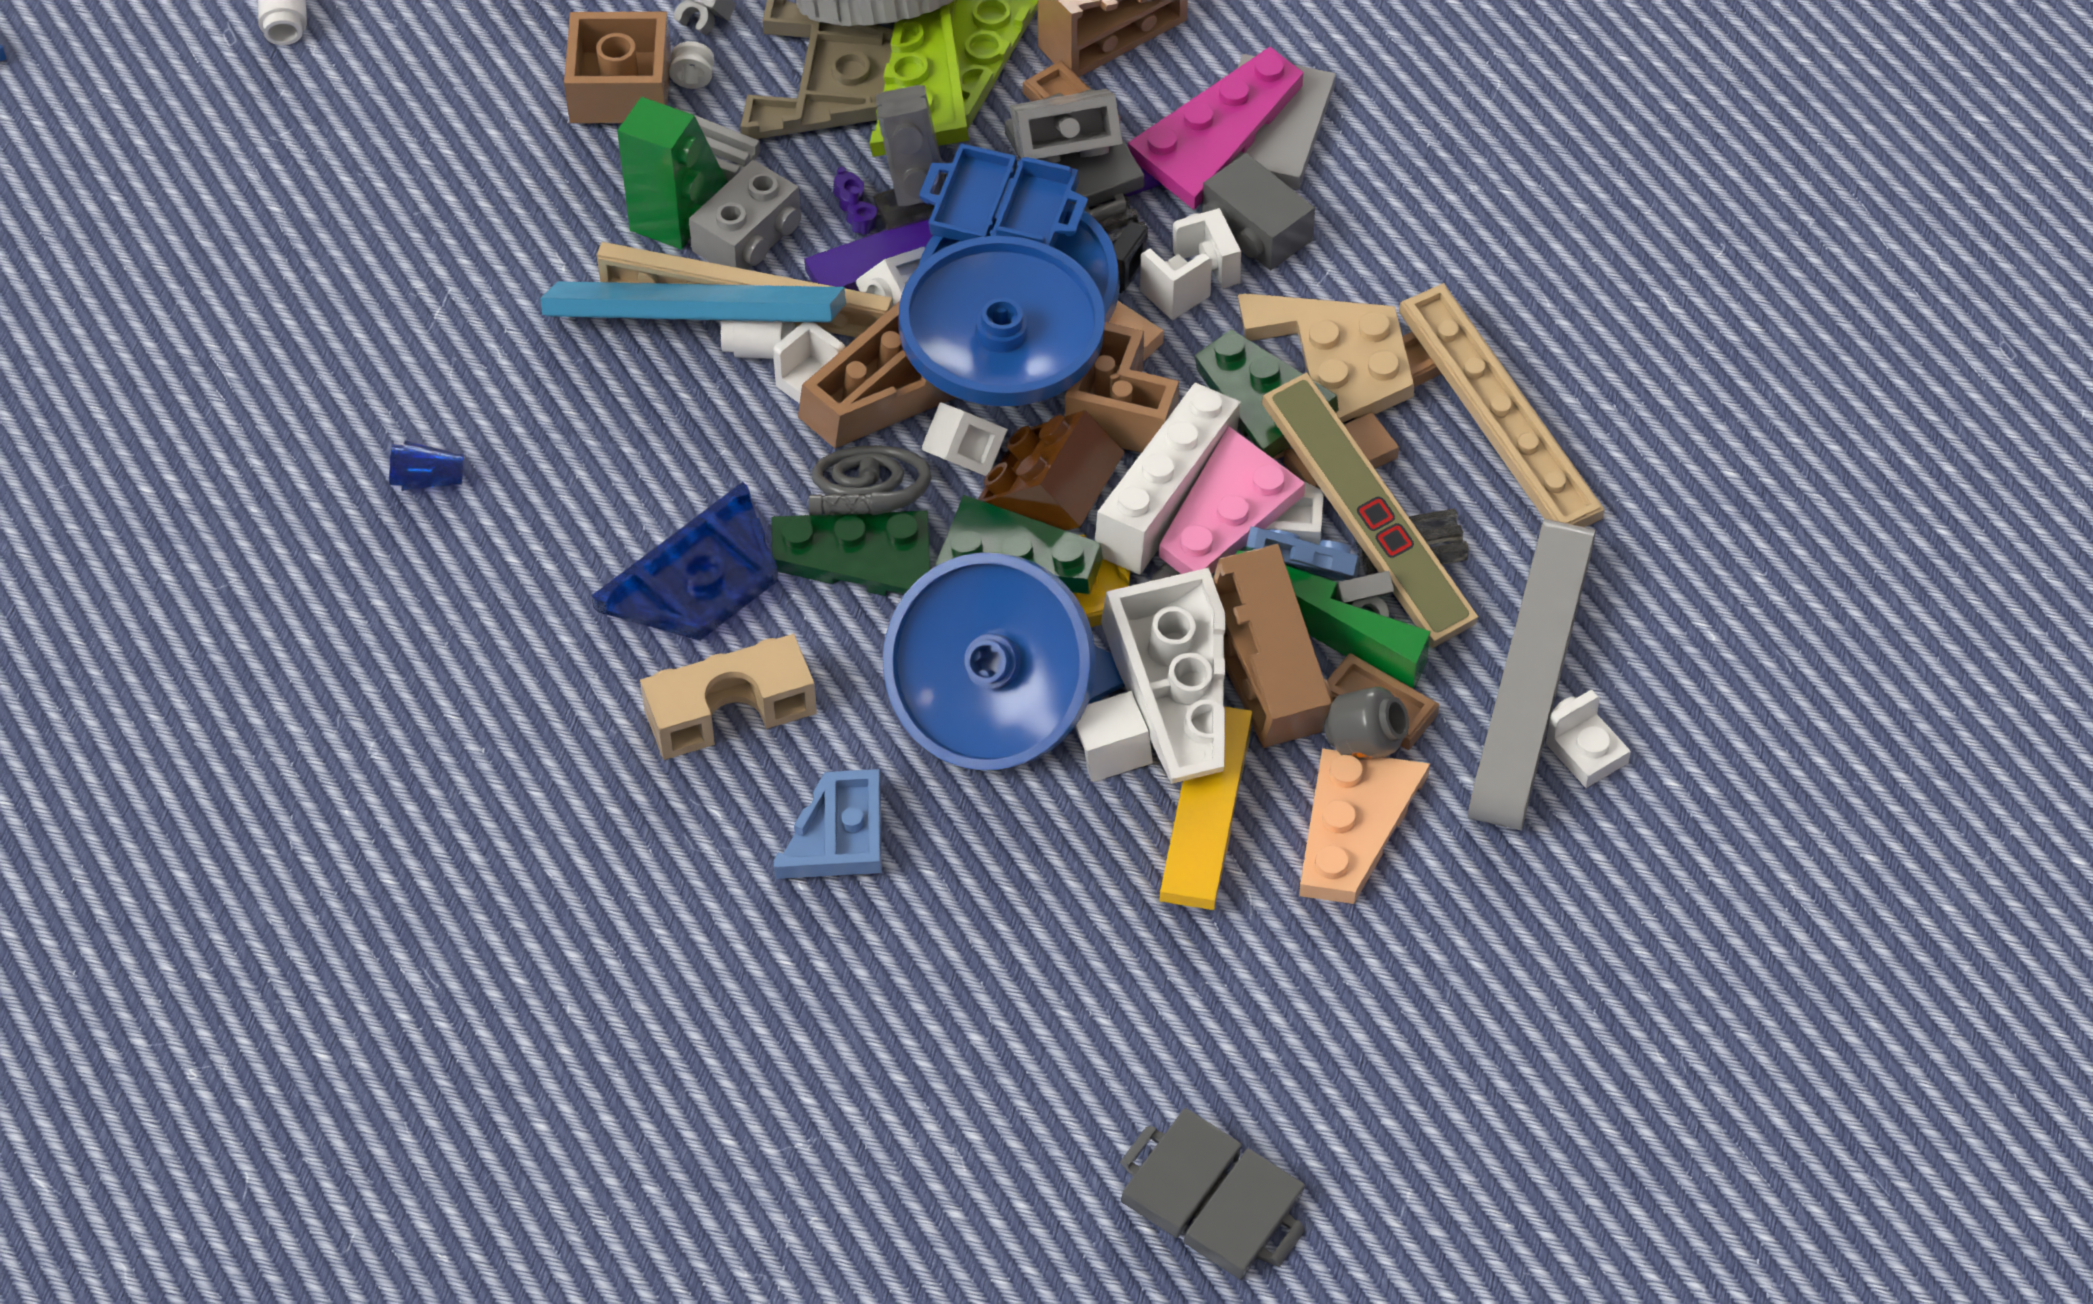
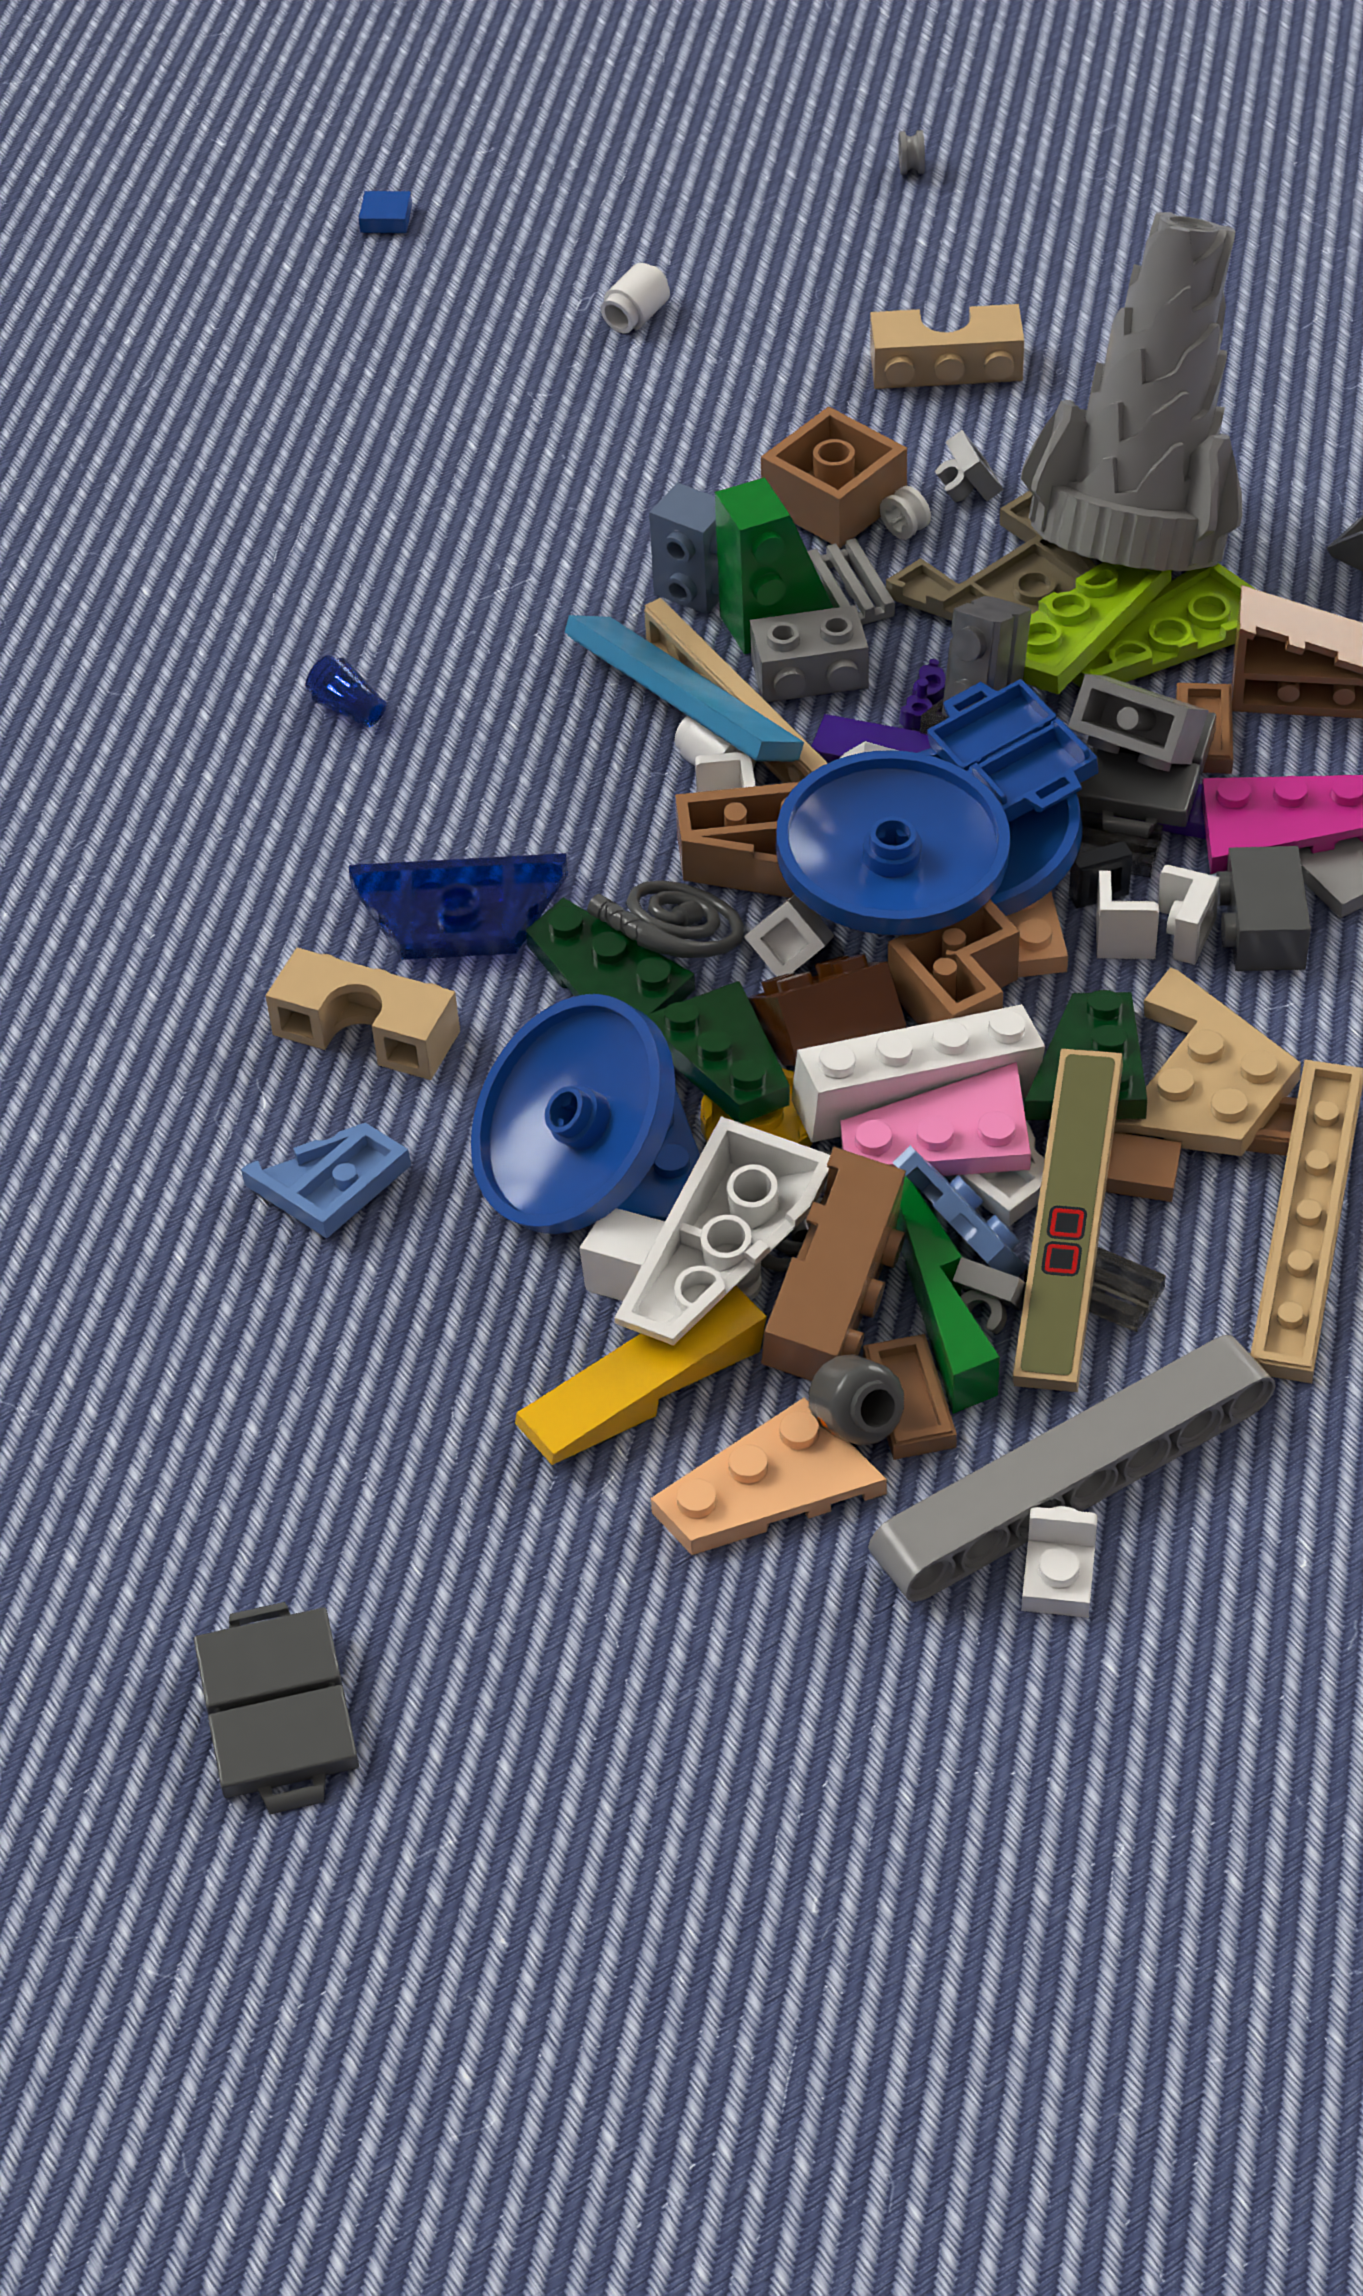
camera: 45 degrees right, 5 degrees down
(583, 187) = (685, 548): none -> sand blue brick

